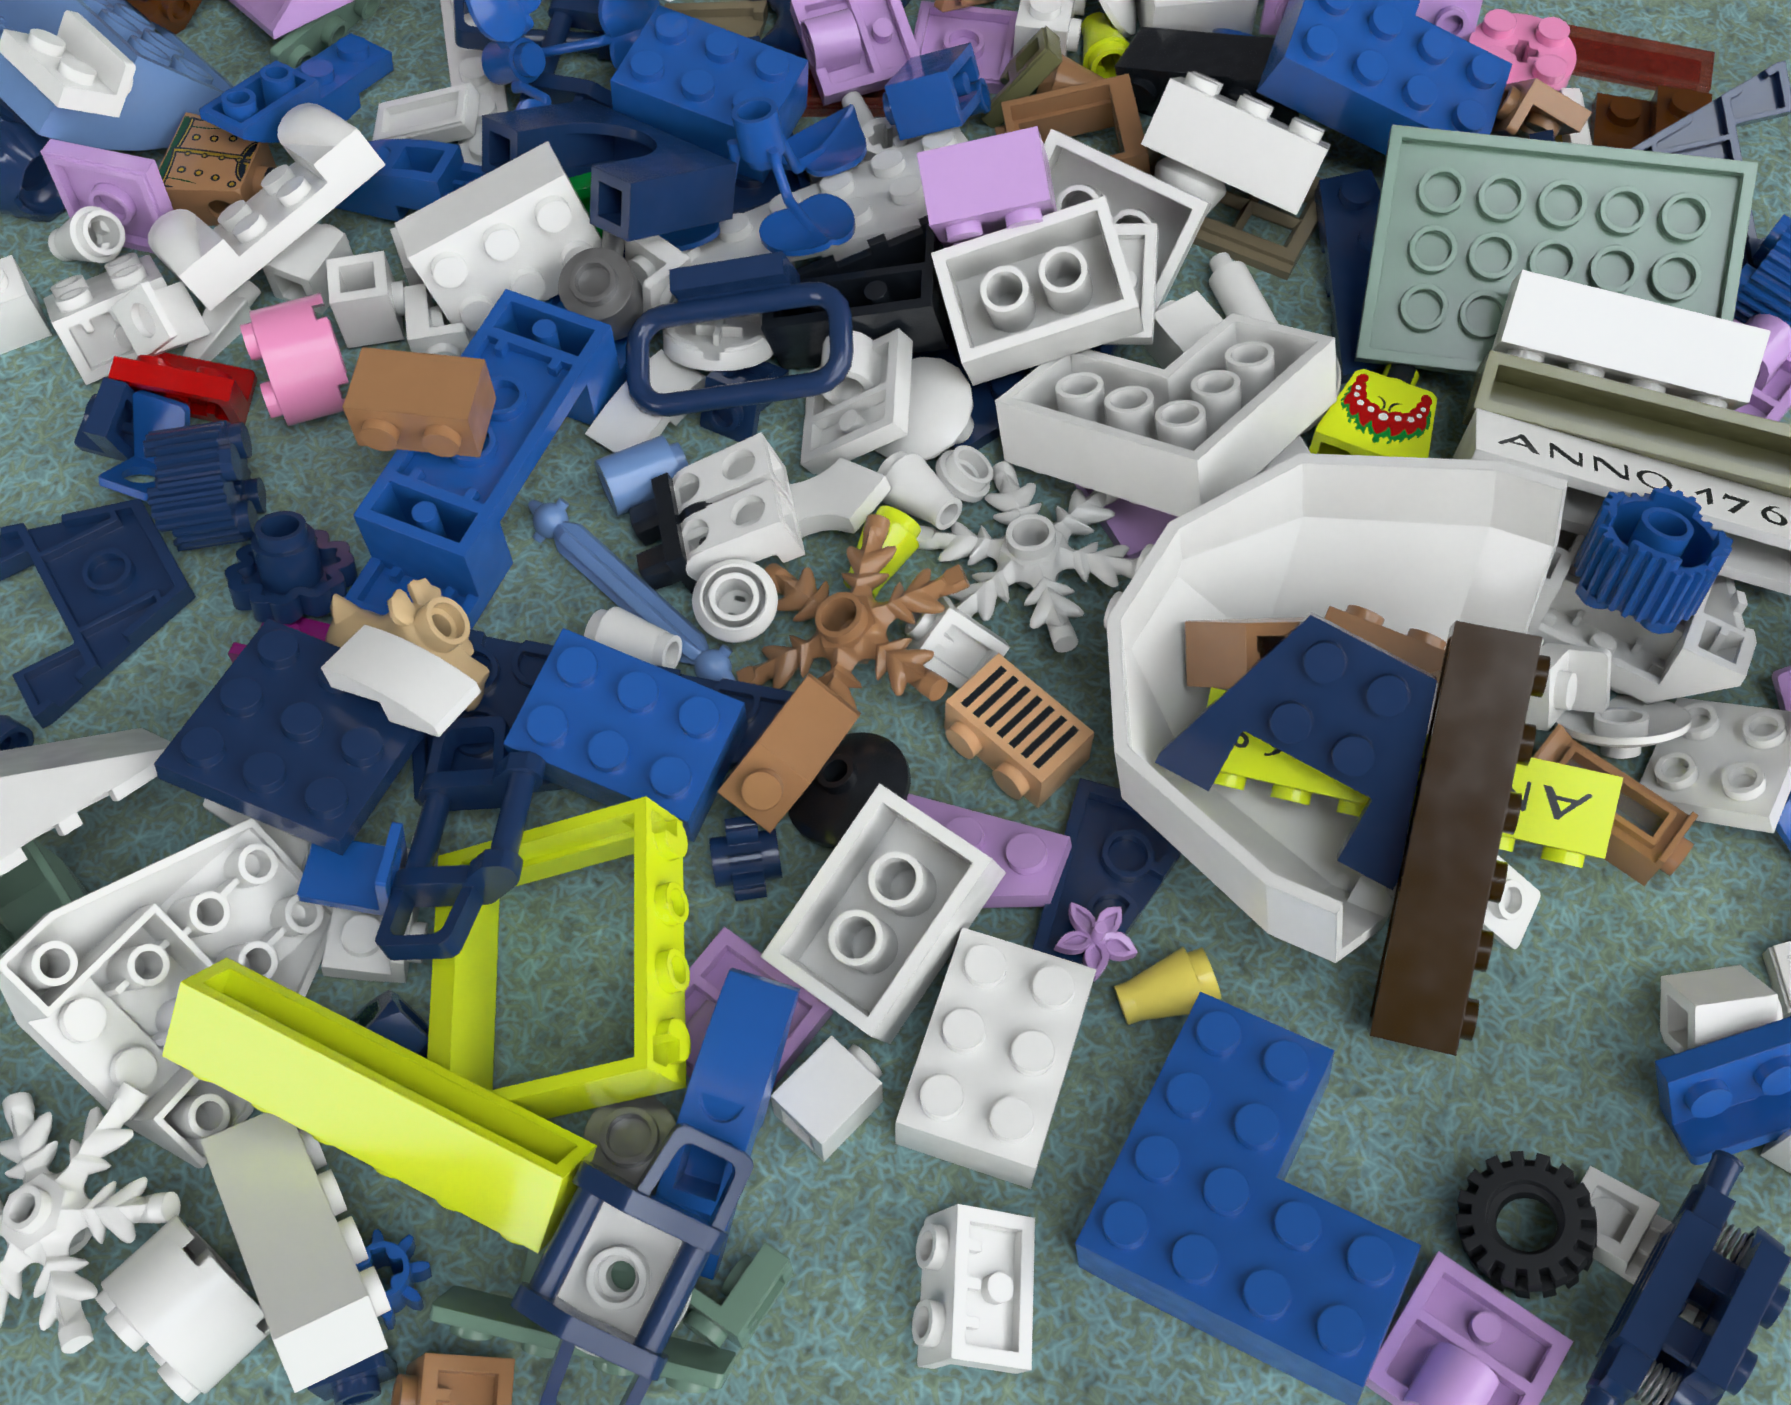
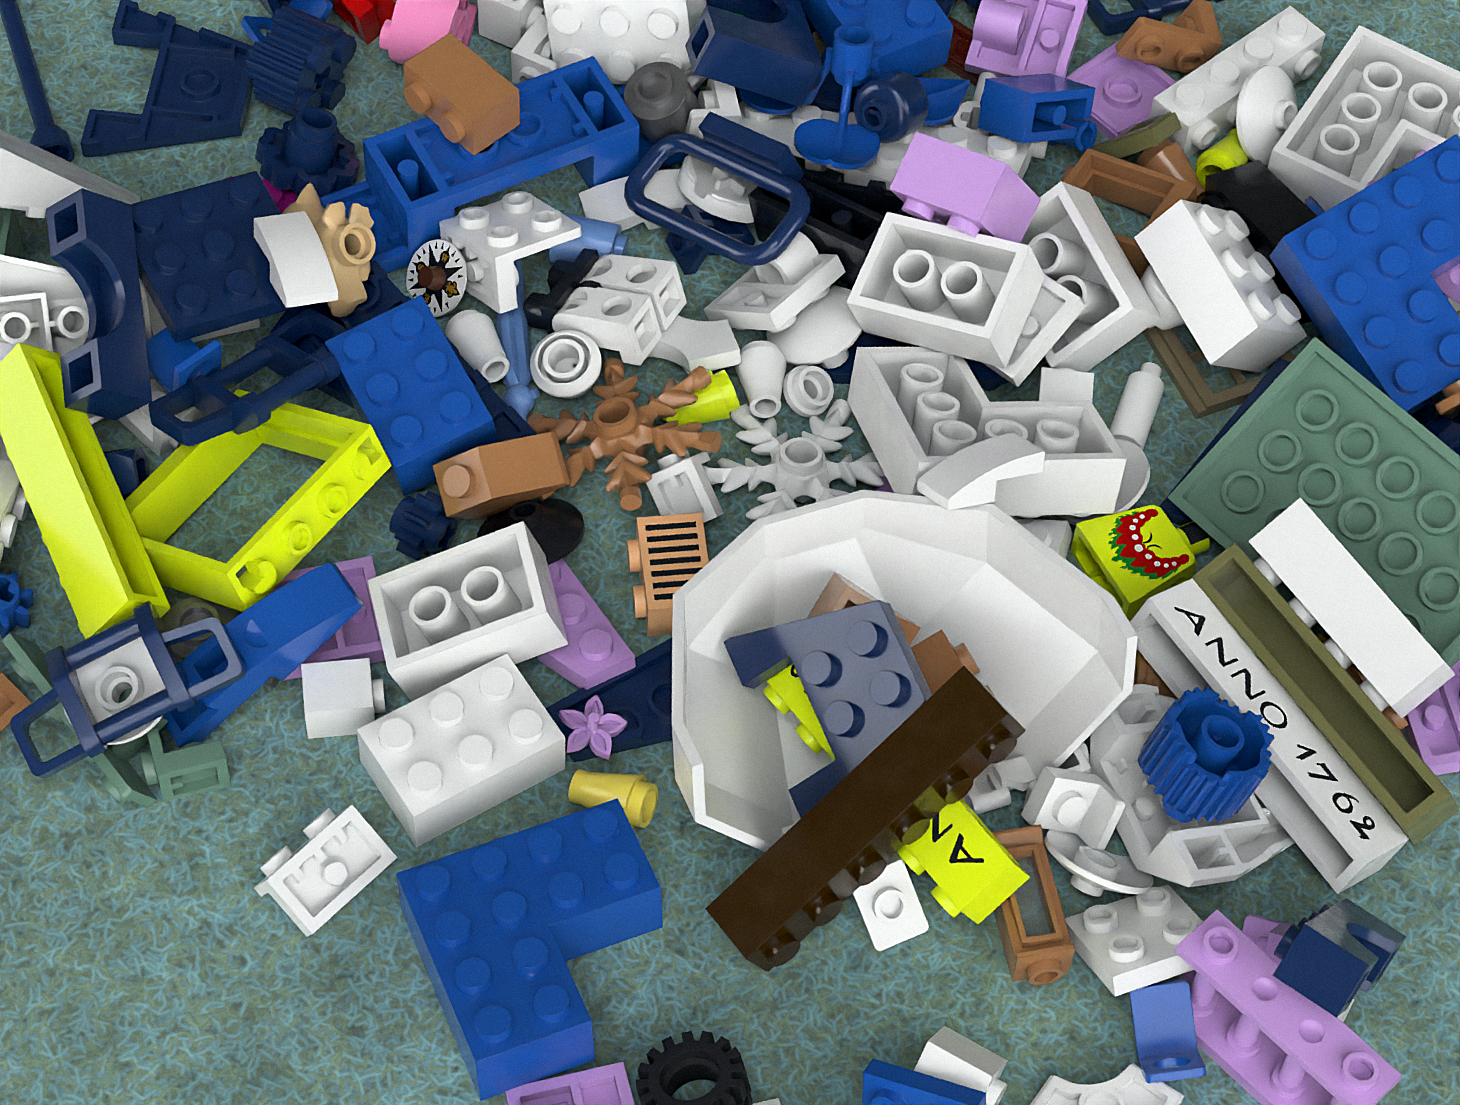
camera: 35 degrees right, 5 degrees down
(182, 816) = (97, 247): none -> dark blue arch
(528, 602) = (438, 275): none -> piece
(563, 530) = (499, 235): none -> white bracket
(824, 161) = (891, 105): none -> dark blue head
(1256, 431) = (972, 473): none -> white slope

